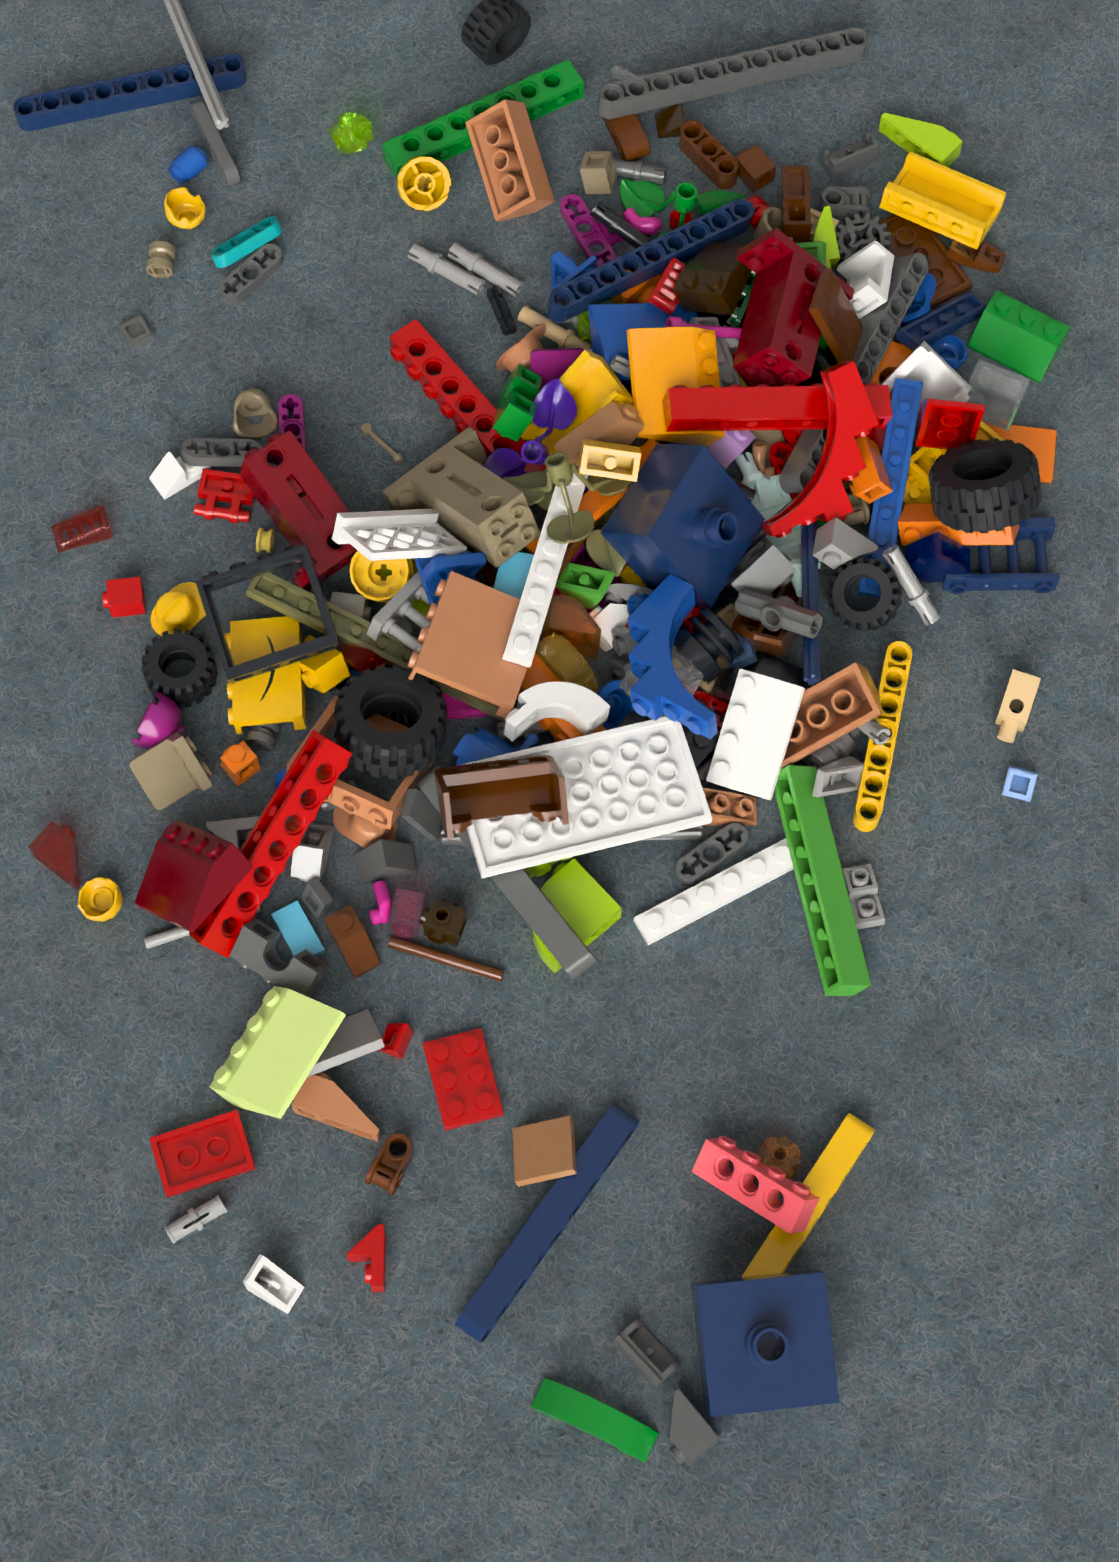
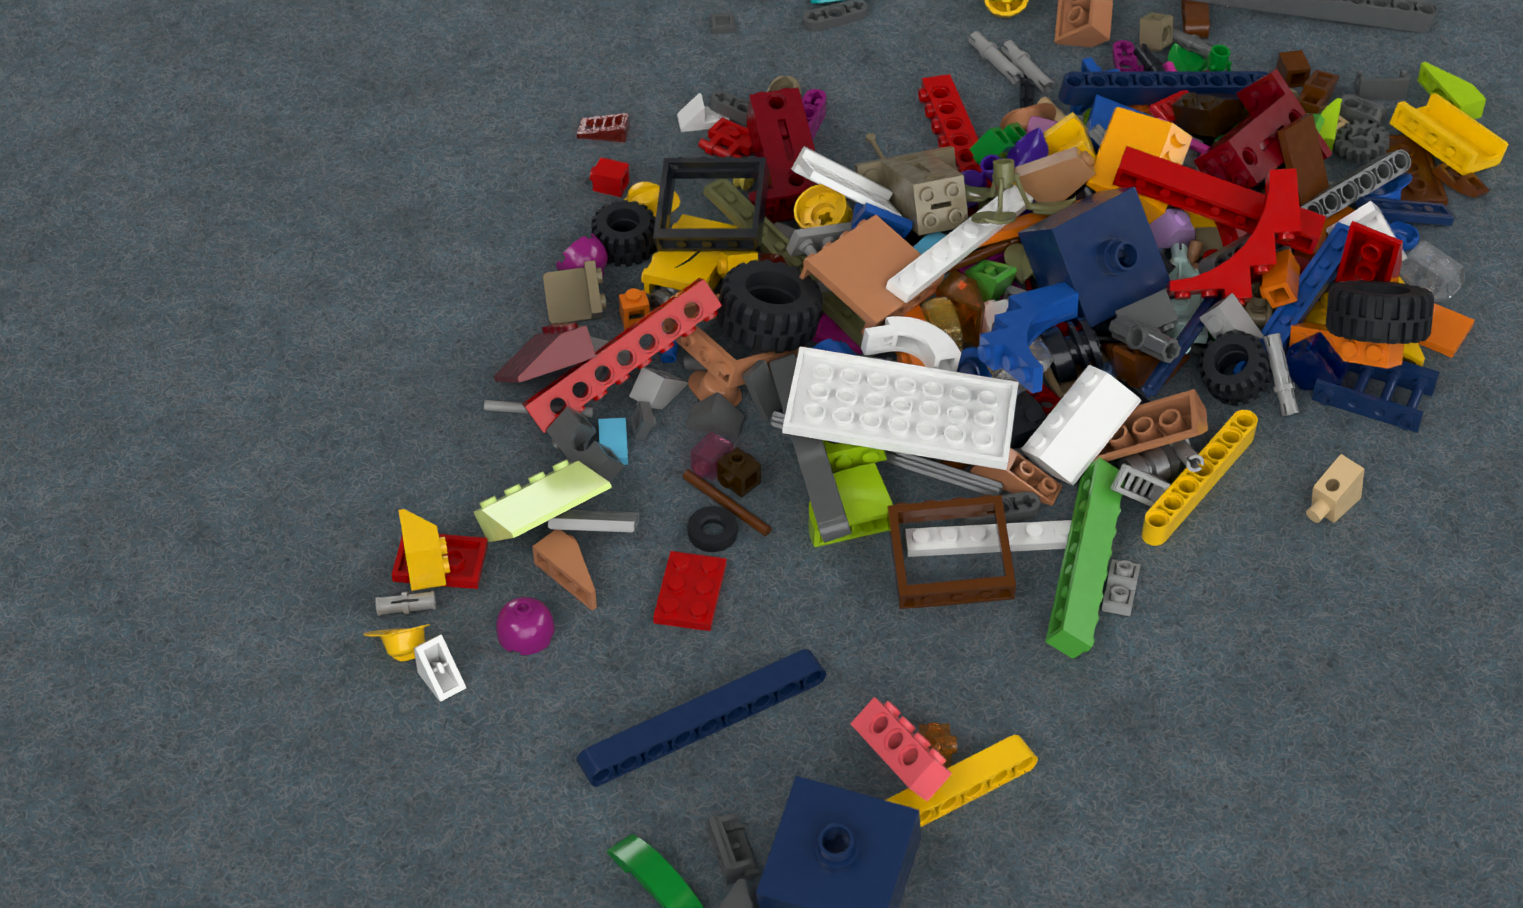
camera: 25 degrees right, 20 degrees down
(58, 852) = (453, 319): clear red slope -> none
(100, 899) = (466, 360): yellow hair -> none
(193, 1166) = (423, 552): none -> yellow slope
(213, 1264) = (401, 642): none -> yellow piece
(326, 1194) = (525, 626): none -> magenta cylinder
(351, 941) = (653, 458): reddish brown slope -> none
(372, 1249) = (536, 682): red slope -> none
(384, 901) = (684, 451): dark pink arm -> none
(388, 1169) = (592, 623): reddish brown piece -> none
(396, 1039) = (651, 542): red slope -> none
(449, 979) = (712, 543): none -> black tyre
(500, 790) = (825, 370): reddish brown windscreen -> none
(544, 1151) = (728, 661): medium nougat tile -> none
(609, 460) = (1050, 181): yellow brick -> none
(669, 122) = (1237, 22): dark brown slope -> none
(679, 881) = (951, 591): none -> reddish brown window
(705, 144) = (1257, 46): reddish brown beam -> none
(869, 276) = (1351, 155): white panel -> none
(1018, 336) = (1474, 244): green slope -> none
(1019, 783) = (1311, 556): medium blue slope -> none

